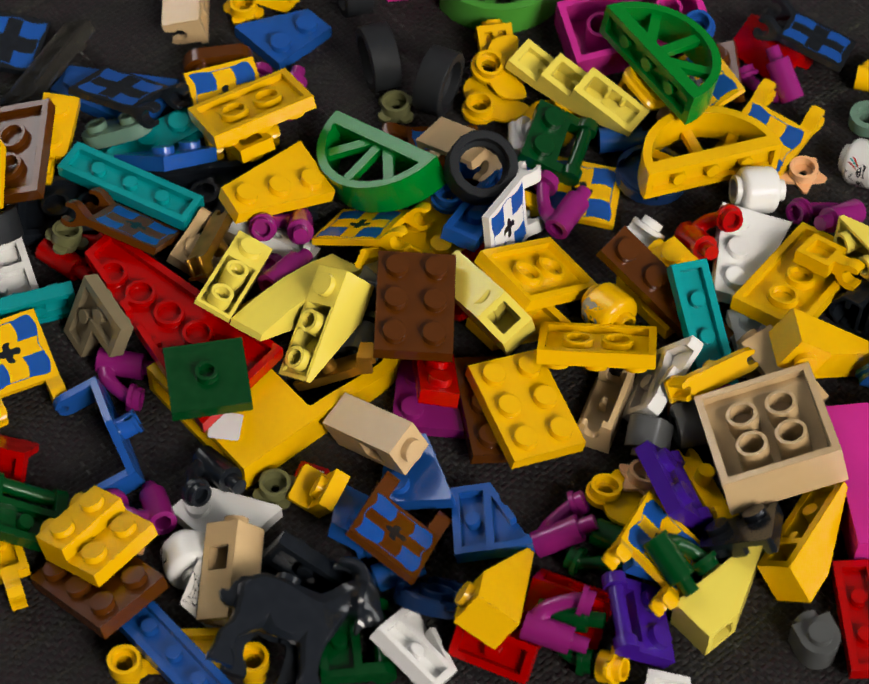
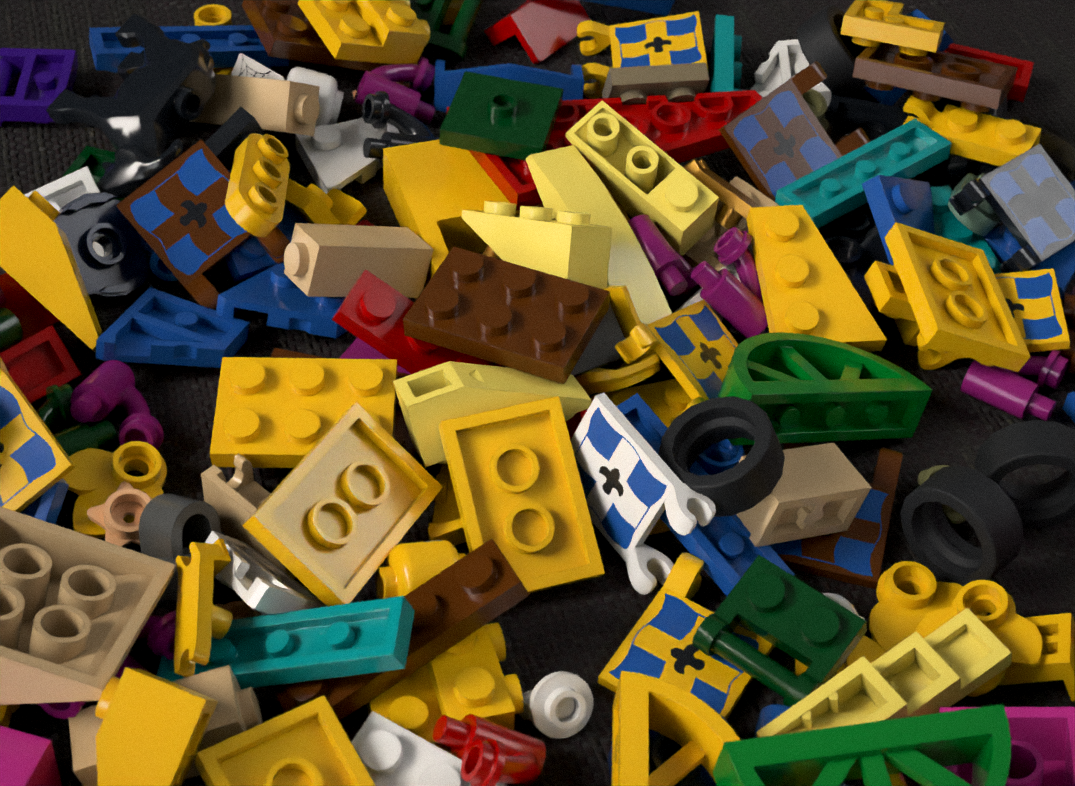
camera: 110 degrees right, 10 degrees down
(227, 427) = (447, 154): white sticker -> none
(274, 479) = (366, 189): olive plate -> none
(355, 495) = (258, 184): none -> yellow plate
(563, 219) = (628, 594): magenta plant -> none
(673, 485) = (75, 490): dark purple plate -> none

